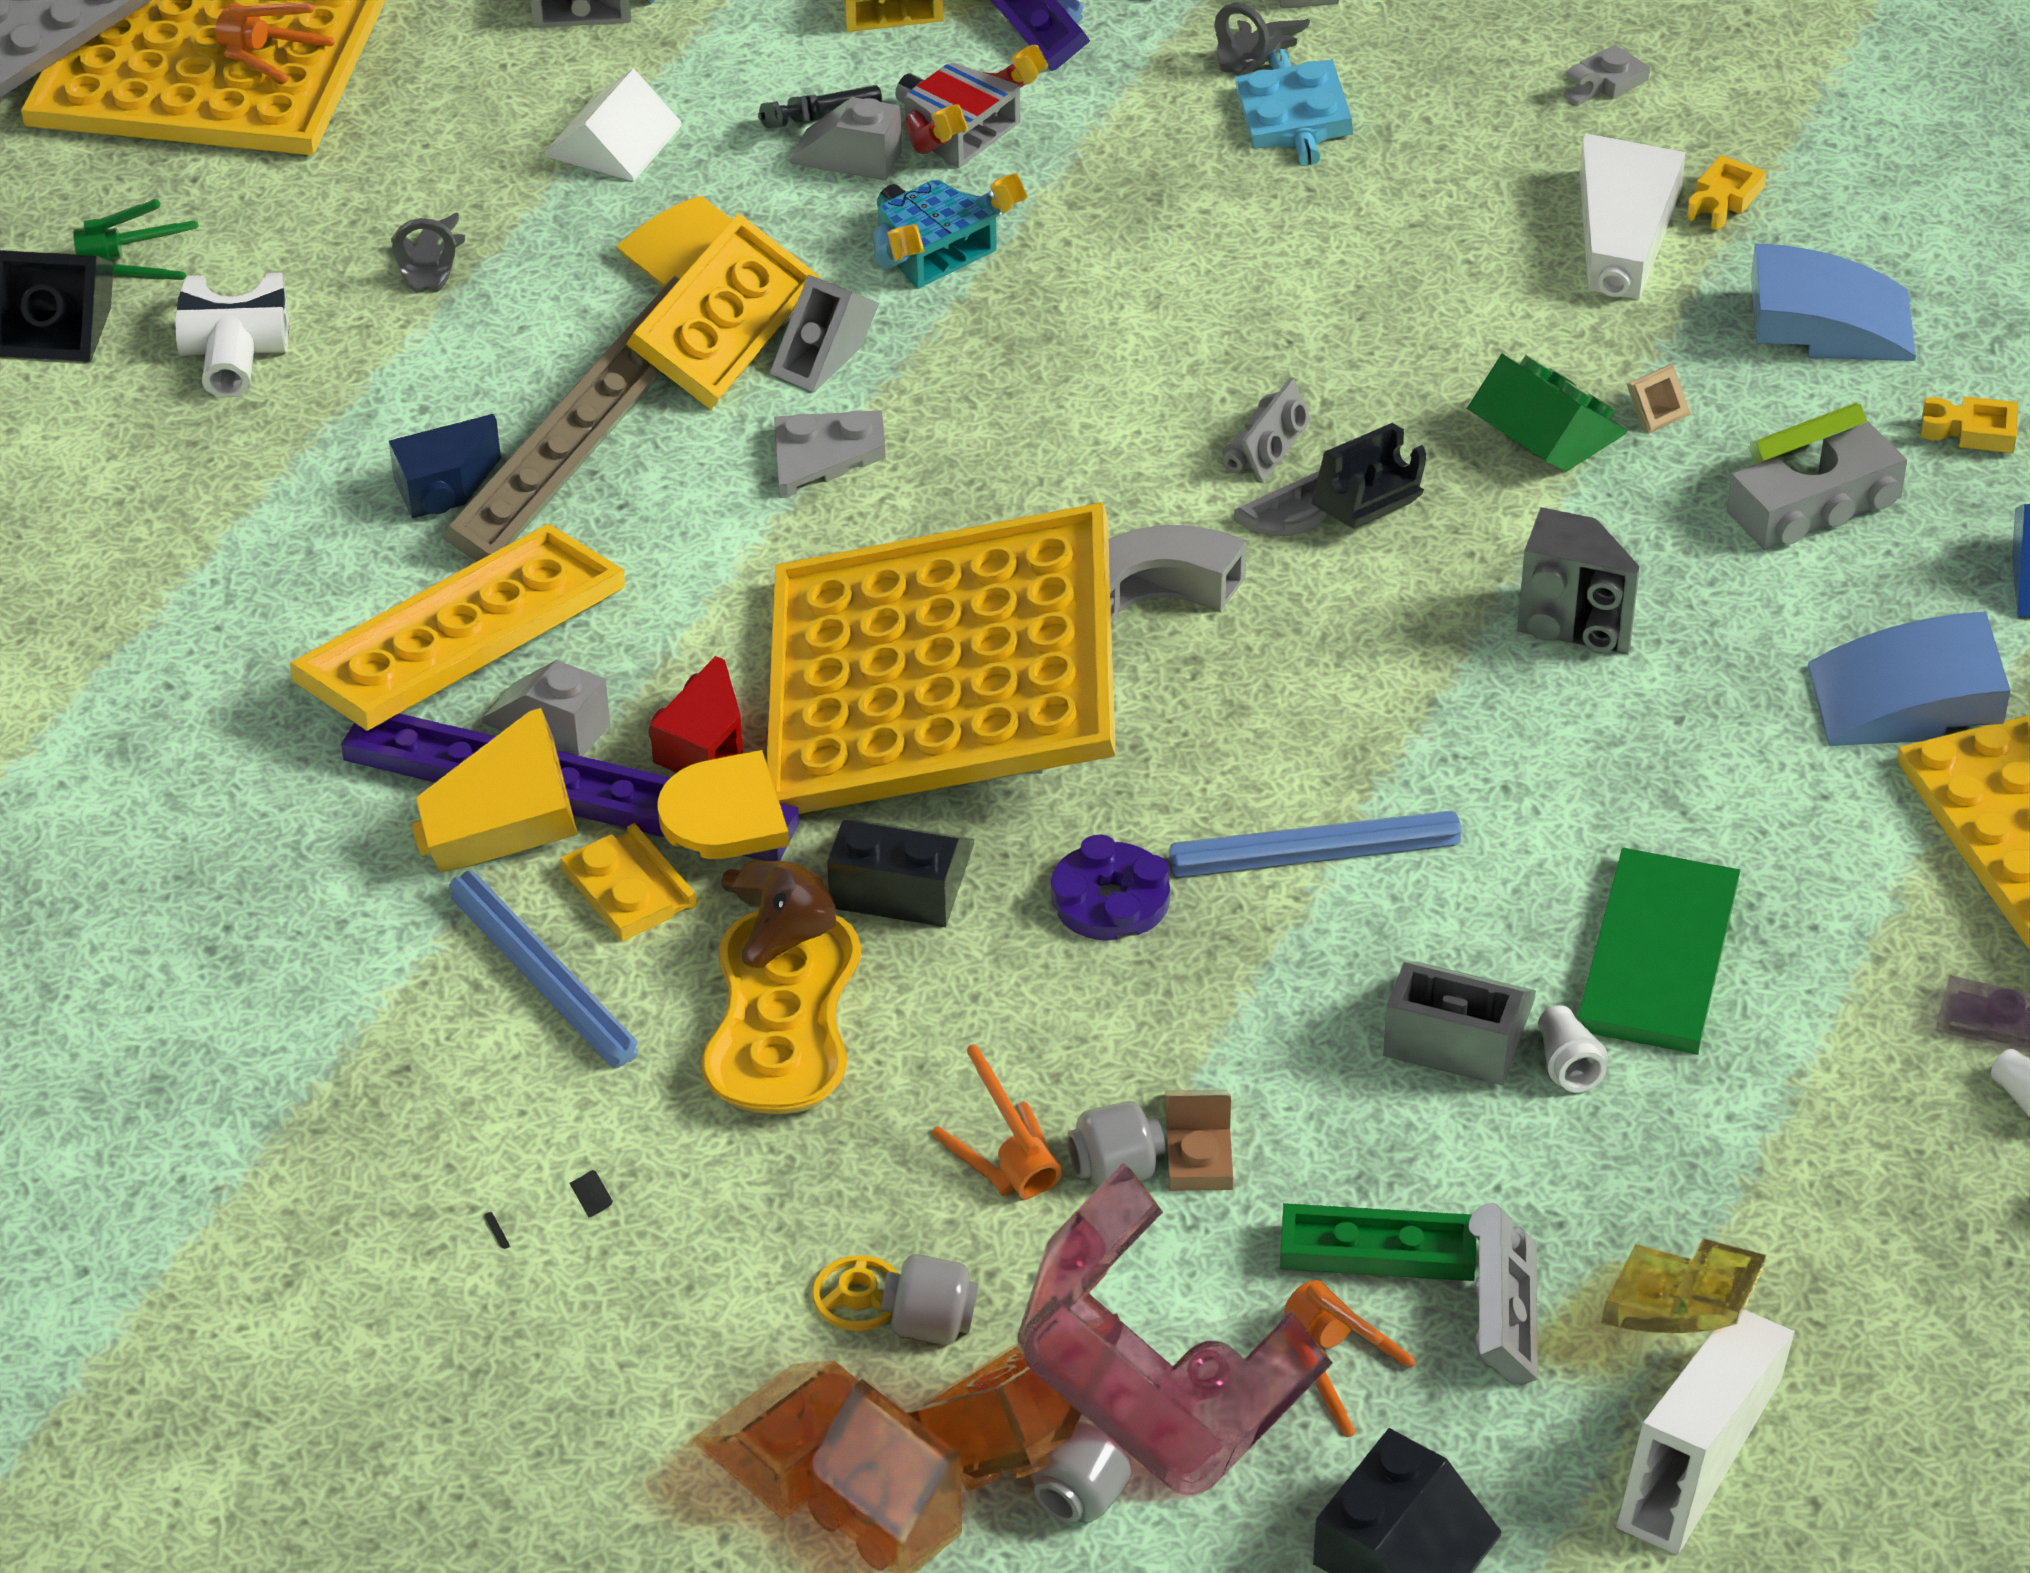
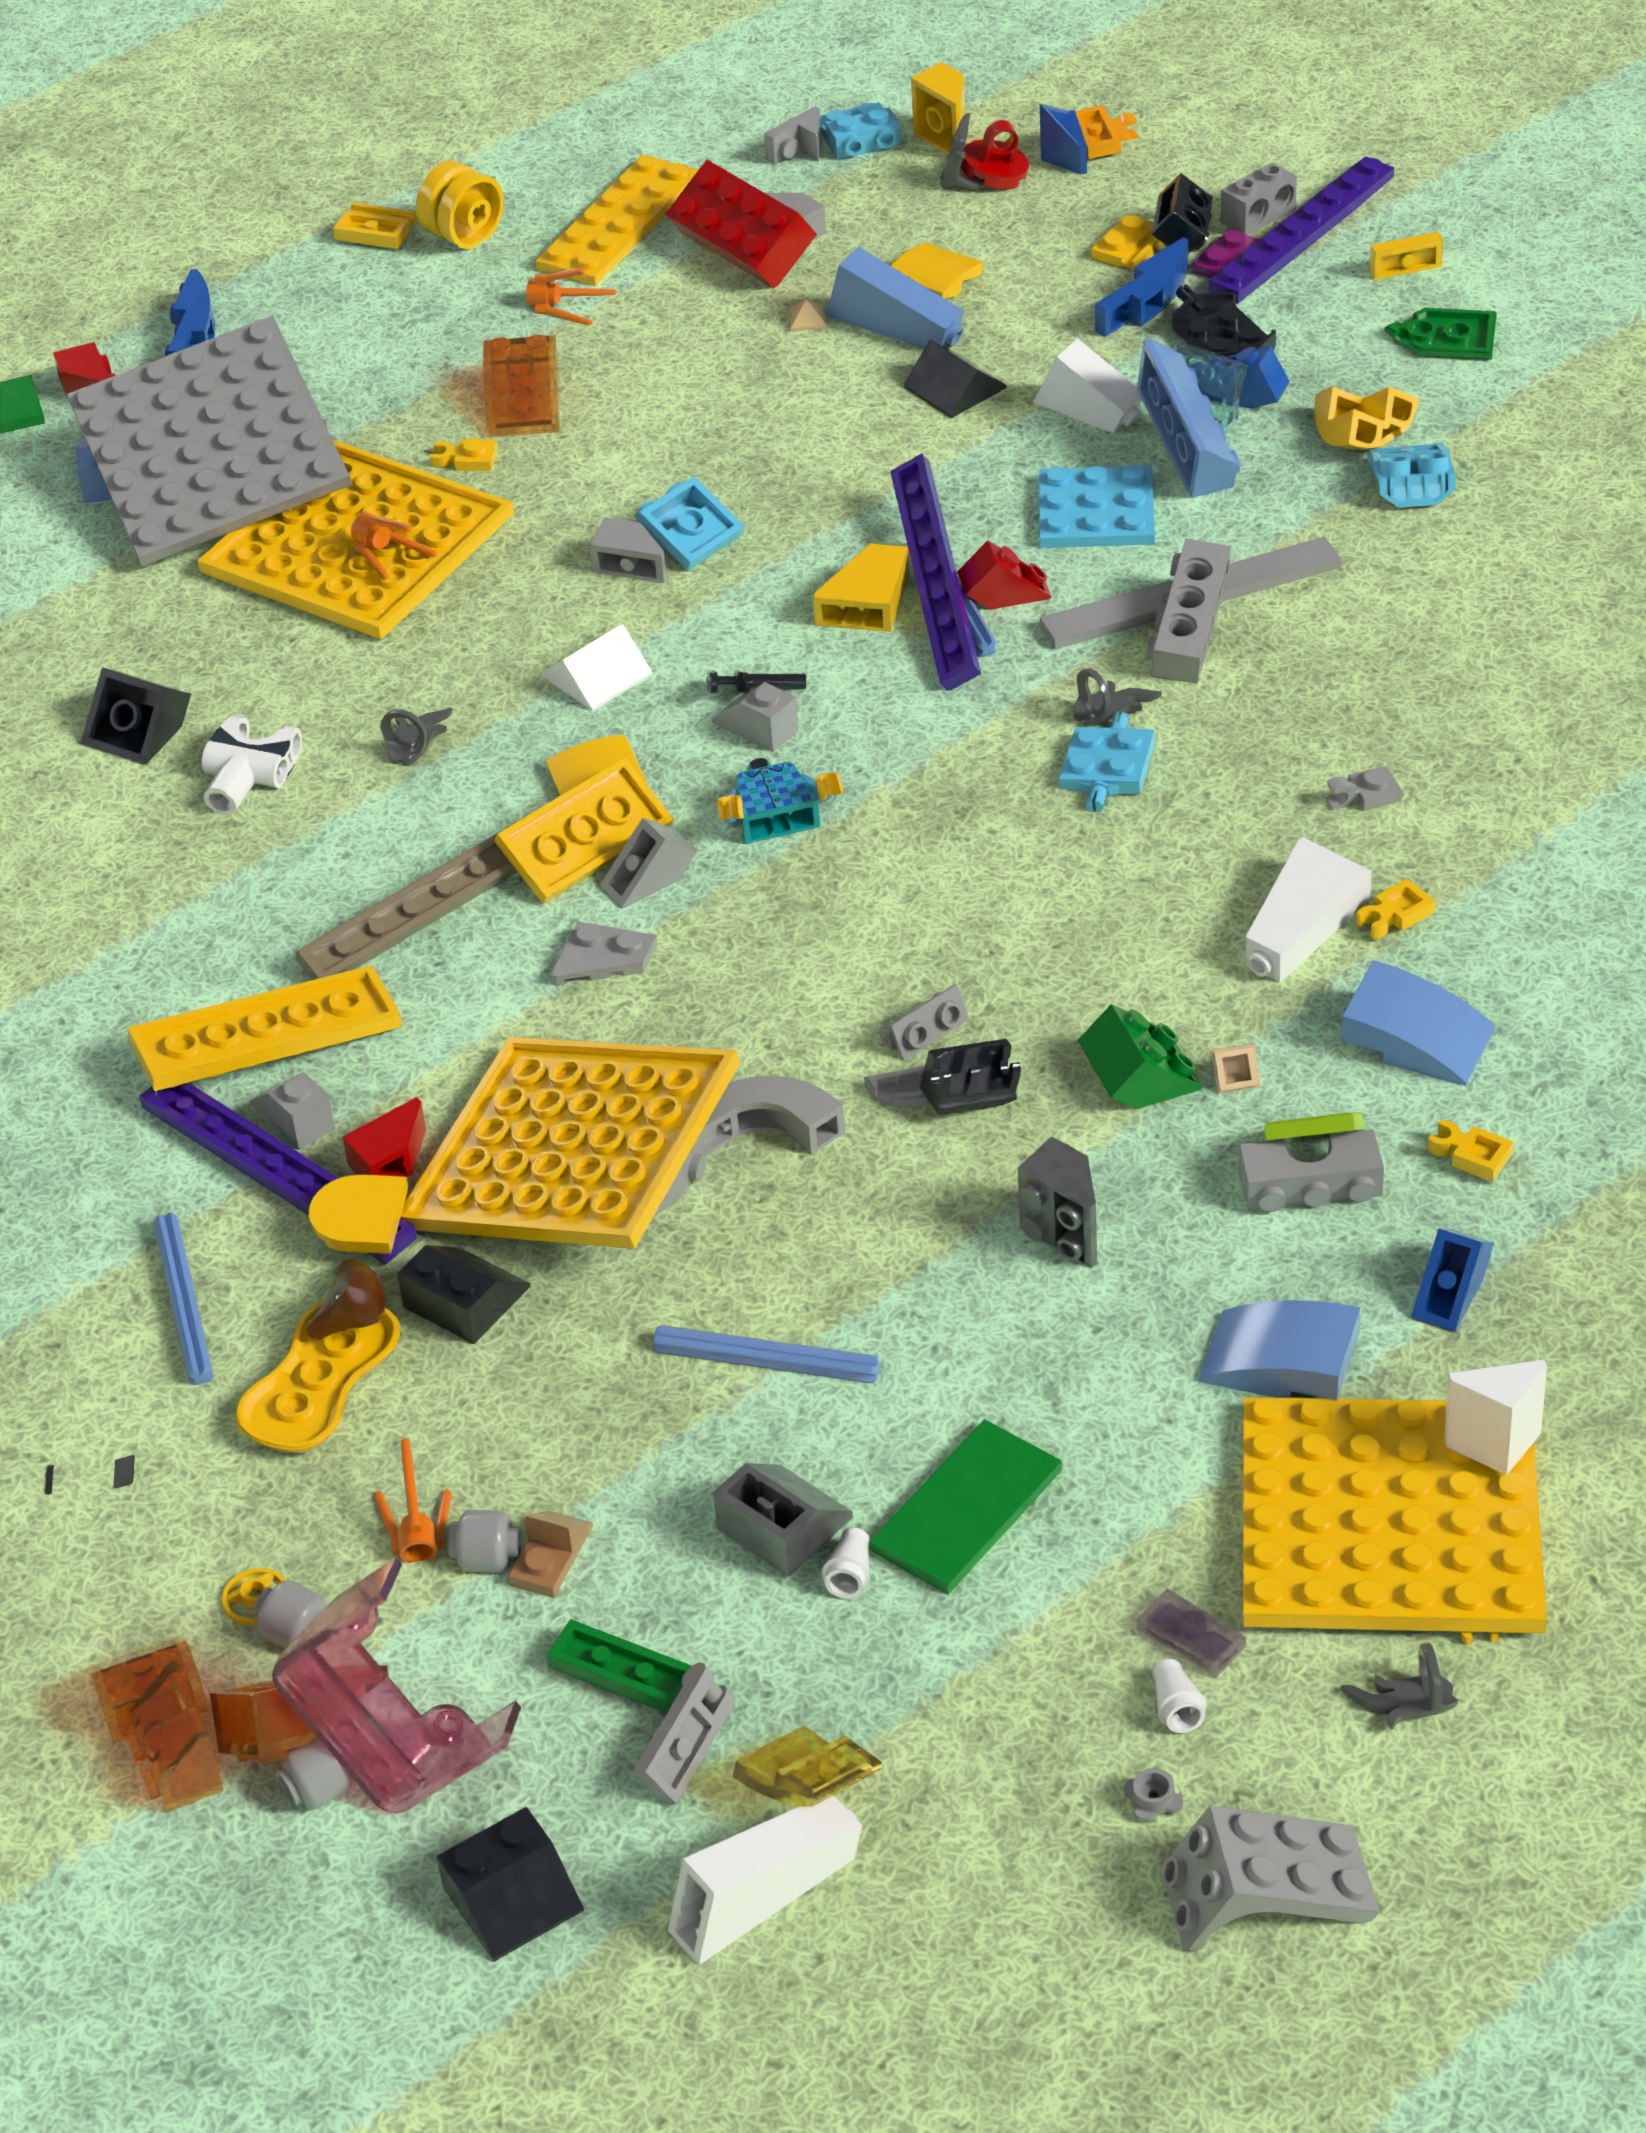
camera: 25 degrees right, 0 degrees up
(107, 243) = (194, 677): green plant -> none
(444, 464) = (327, 901): dark blue slope -> none
(497, 800) = (213, 1165): yellow slope -> none
(628, 882) = (276, 1250): yellow plate -> none
(964, 109) = (854, 707): torso -> none
(1106, 862) = (600, 1325): dark purple plate -> none
(1330, 1323) = (550, 1715): orange plant -> none

